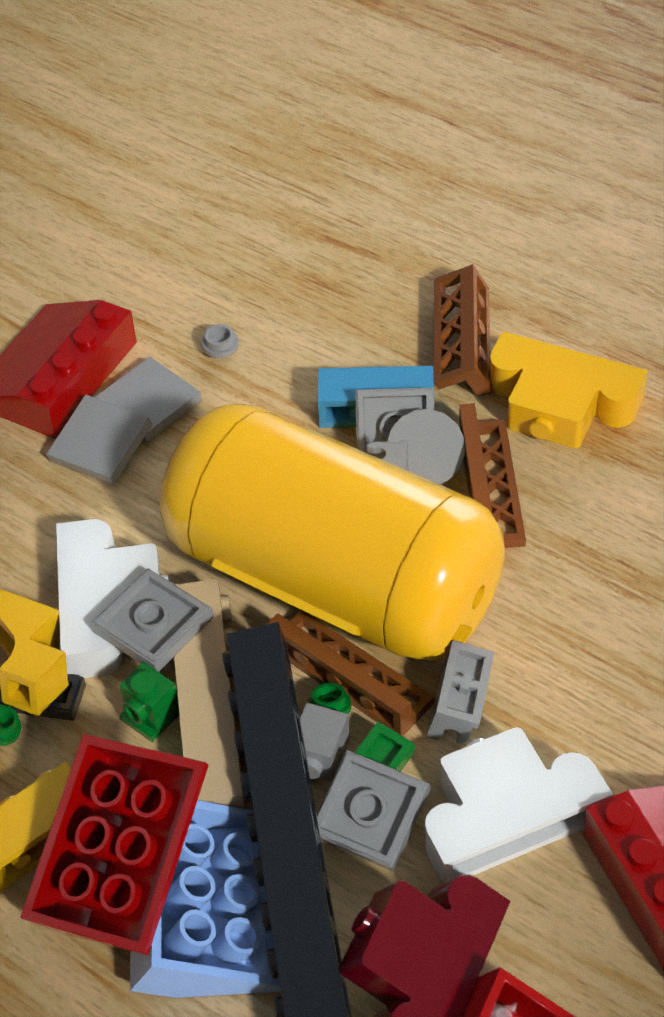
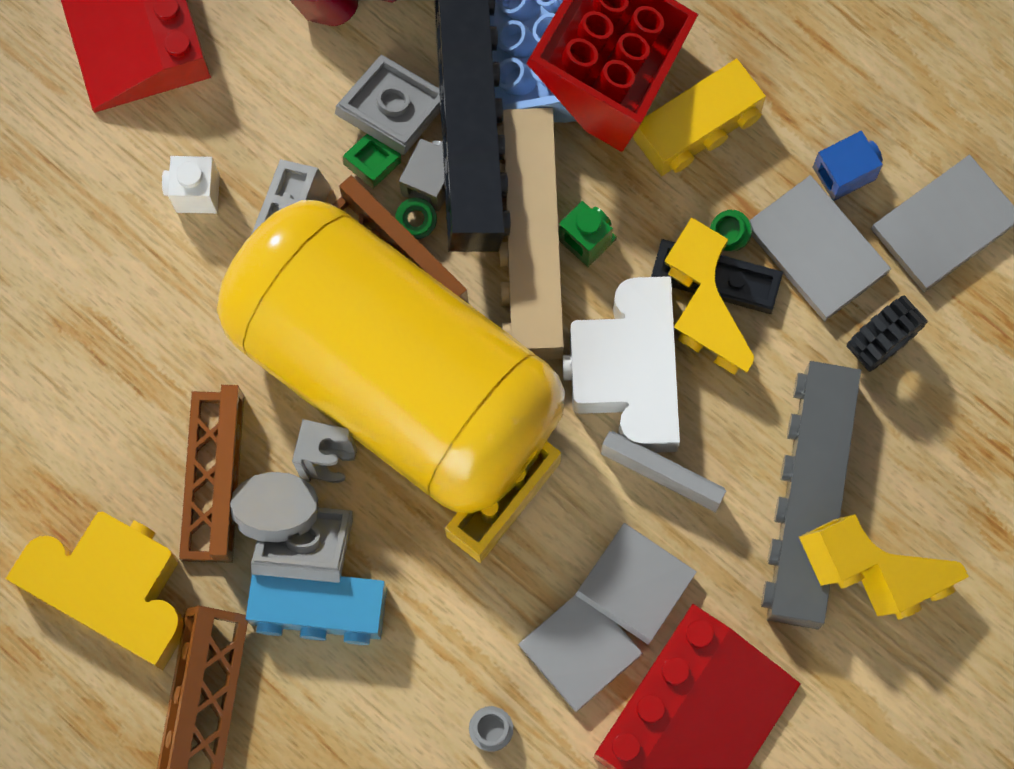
camera: 175 degrees left, 25 degrees up
(53, 508) = (663, 471): none -> light grey tile
(152, 620) = (579, 299): light grey tile -> none
(506, 803) = (269, 95): white brick -> none
(569, 702) = (192, 184): none -> white brick

